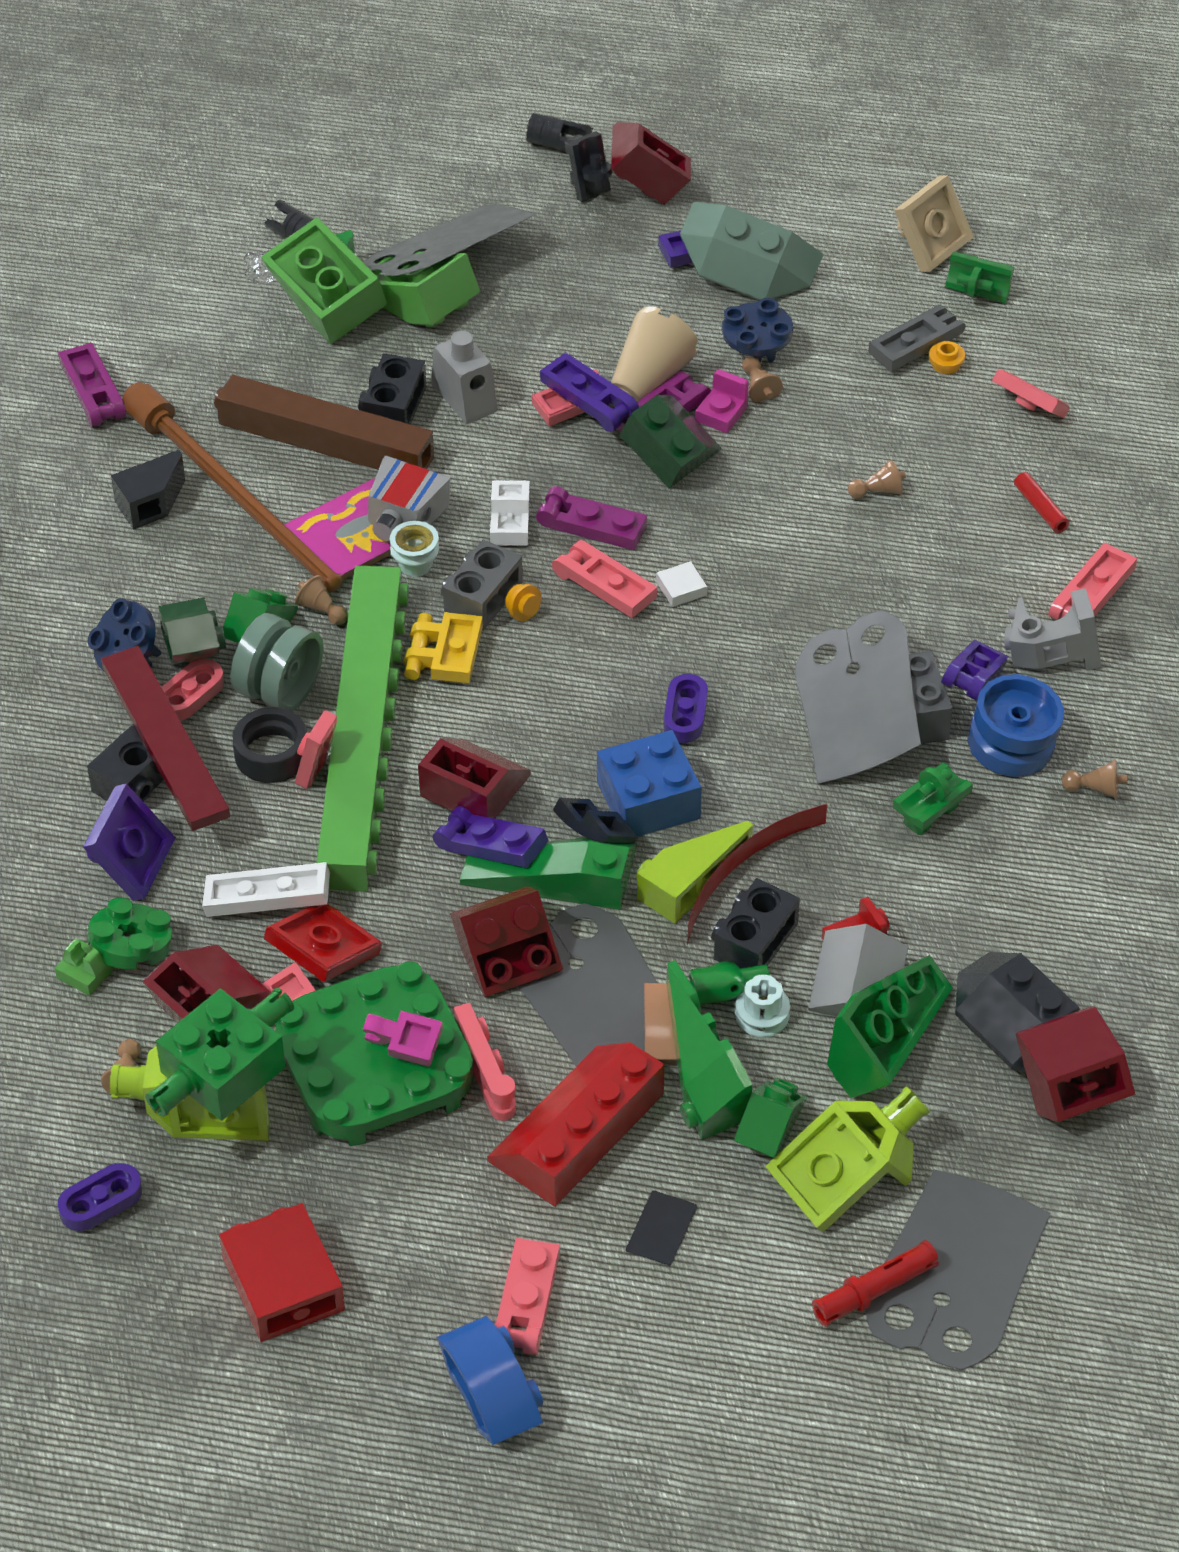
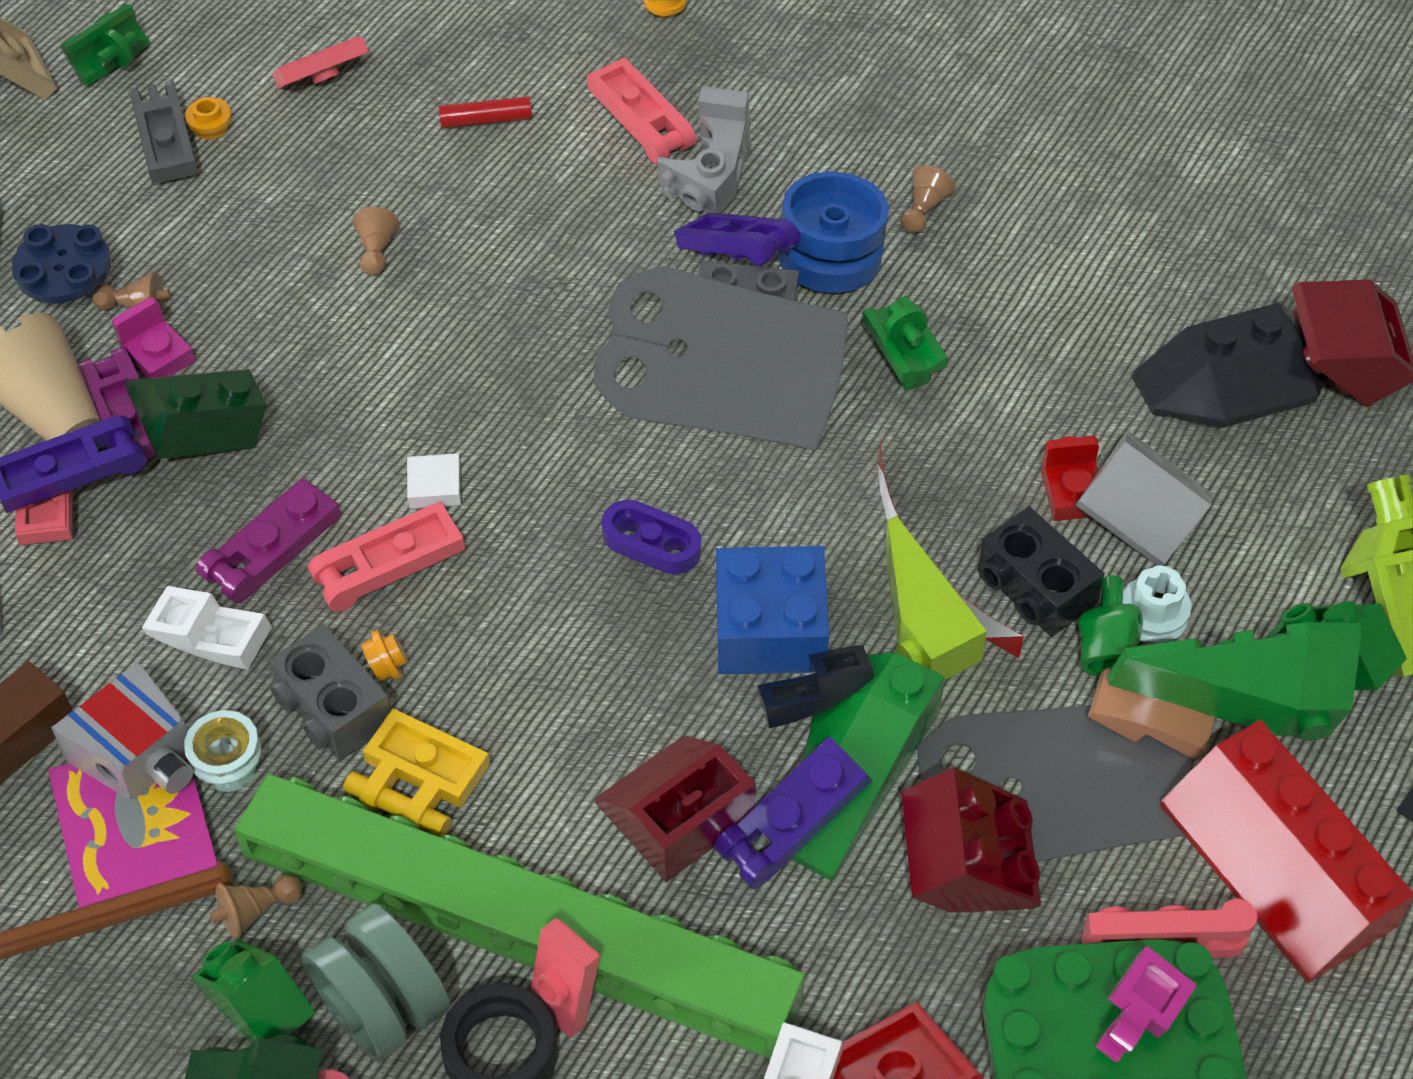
camera: 70 degrees left, 5 degrees up
(884, 1025) = (1260, 503): green wedge -> none

